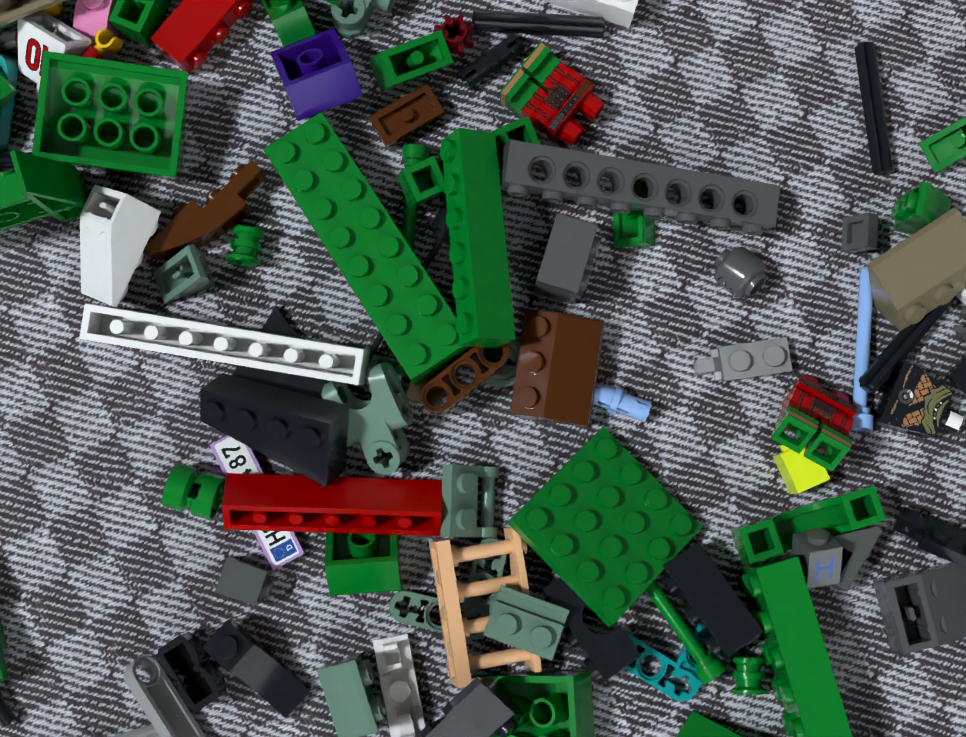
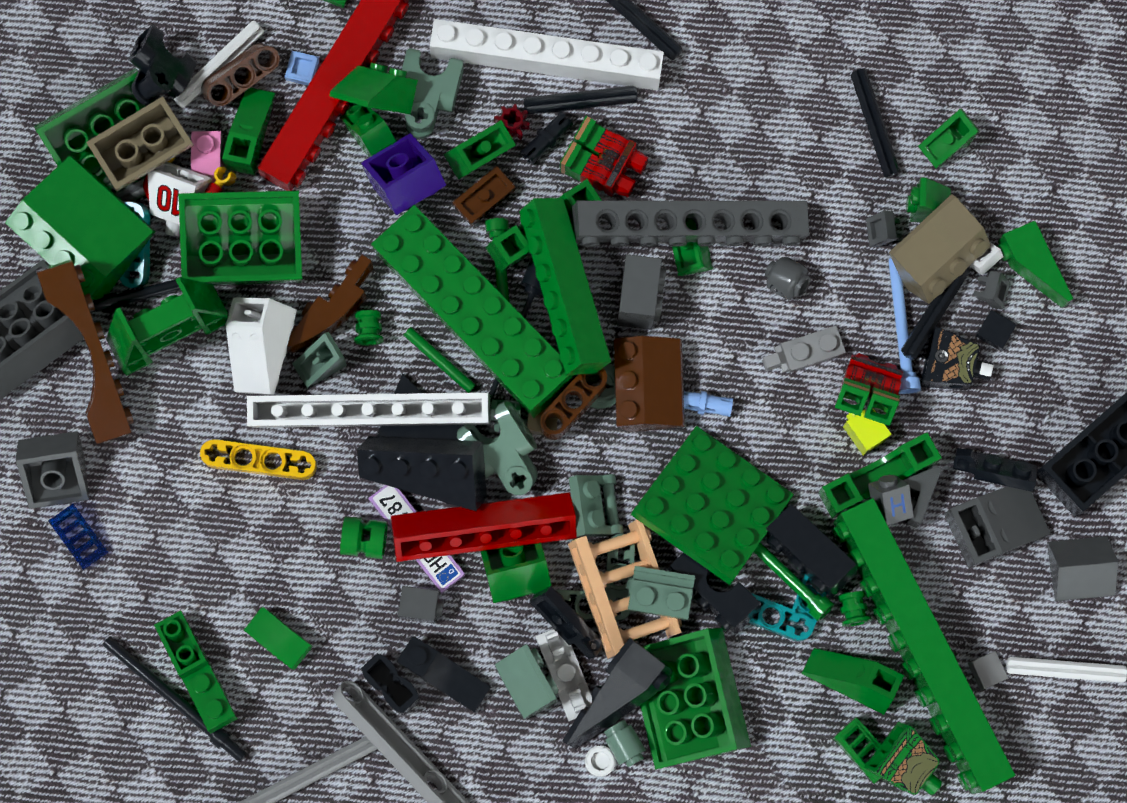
camera: 10 degrees left, 5 degrees down
(74, 592) = (278, 638): none -> green slope
(93, 374) = (259, 455): none -> yellow beam
(322, 298) = (441, 361): none -> green bar
(410, 634) = (566, 622): none -> black hinge

